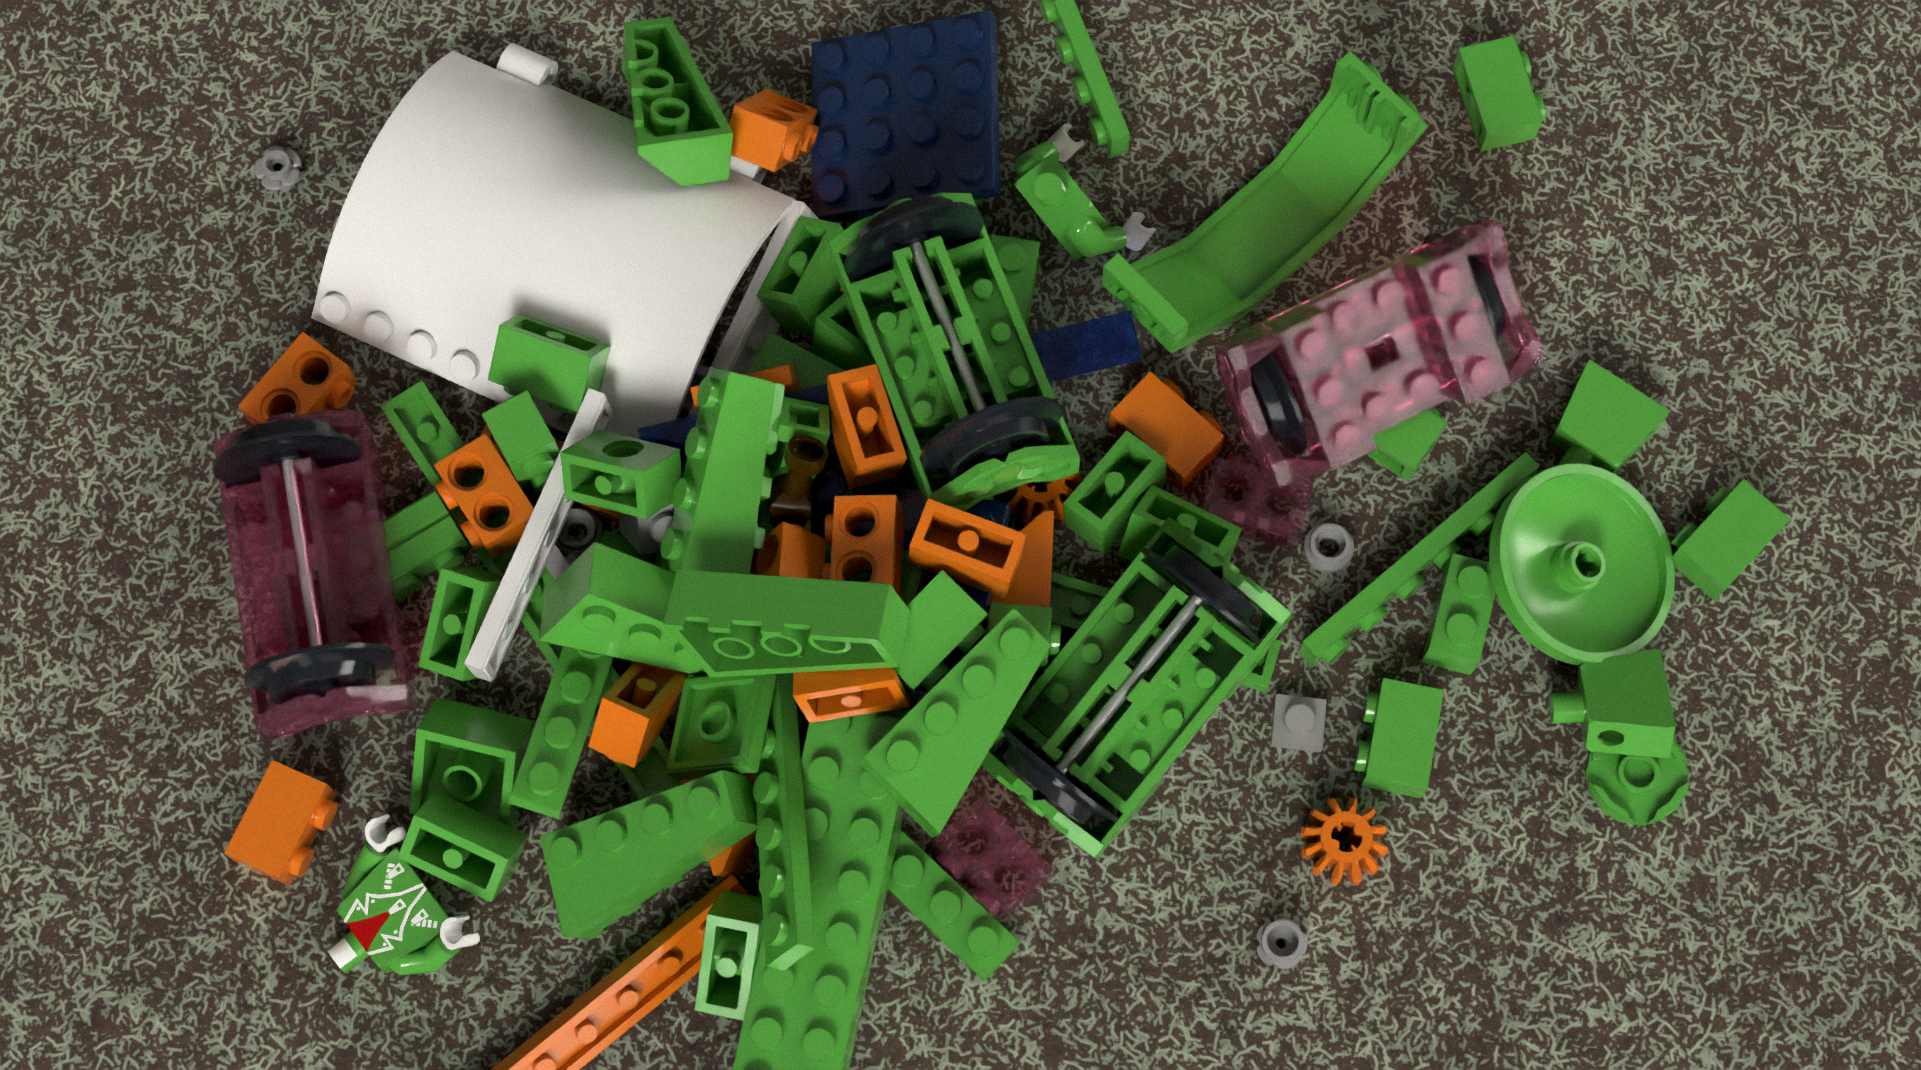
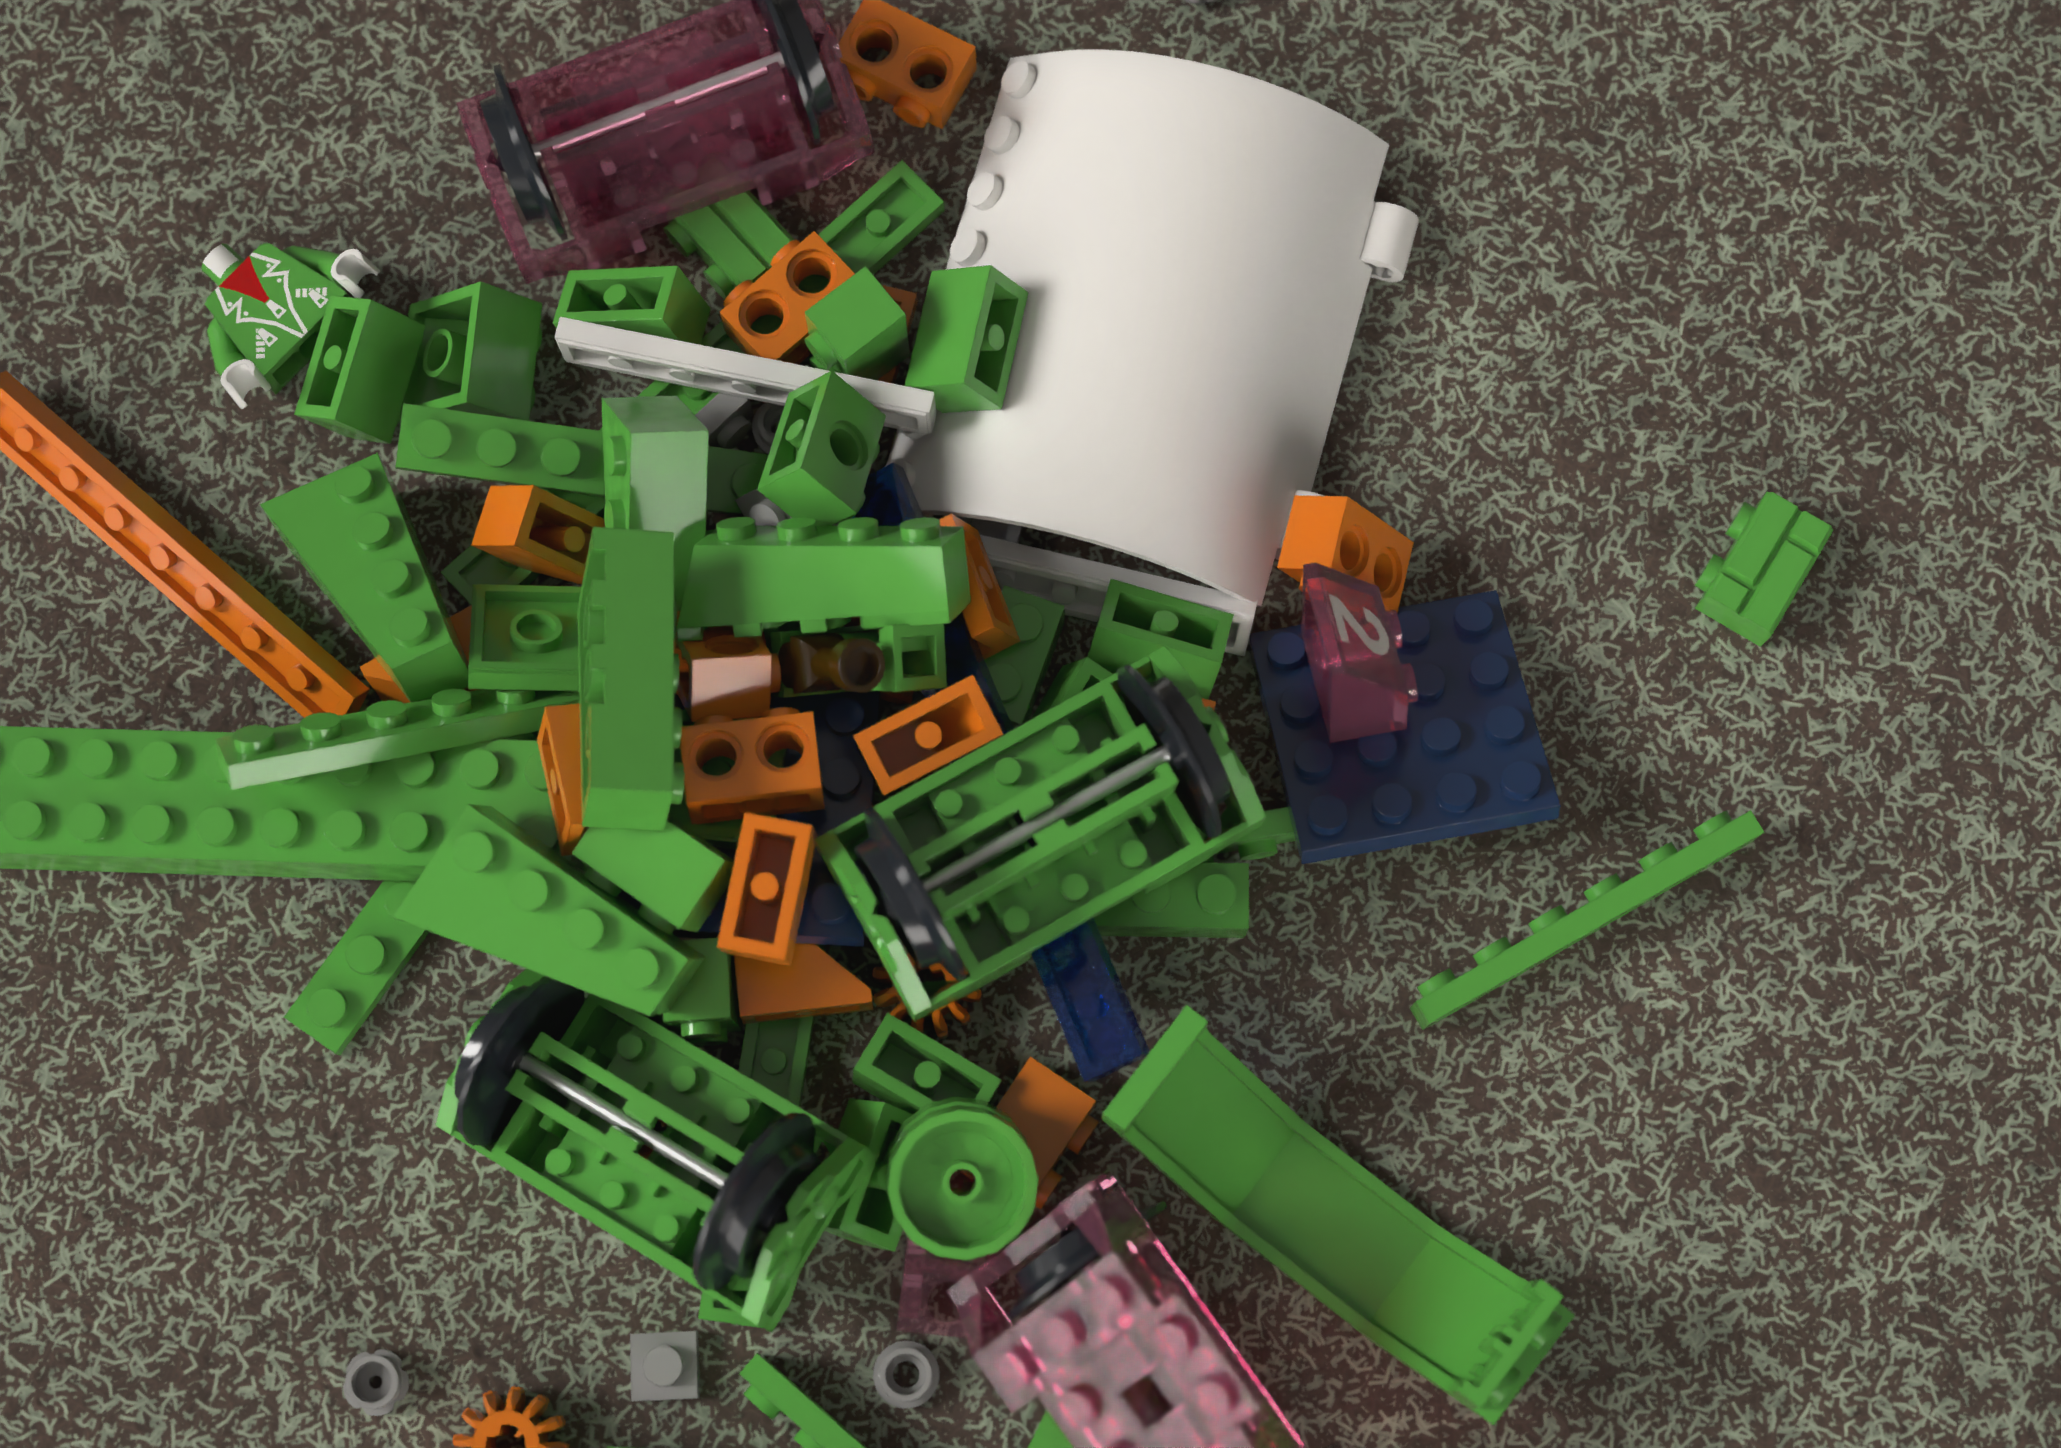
camera: 80 degrees right, 5 degrees up
(282, 823) = (369, 162): orange brick -> none
(672, 106) = (1329, 420): bright green wedge -> none
(729, 954) = (258, 695): bright green brick -> none
(853, 131) = (1354, 655): none -> clear pink slope
(1004, 851) = (444, 1014): clear pink brick -> none
(1066, 207) = (1315, 951): bright green torso -> none
(1199, 458) = (980, 1214): none -> bright green wheel

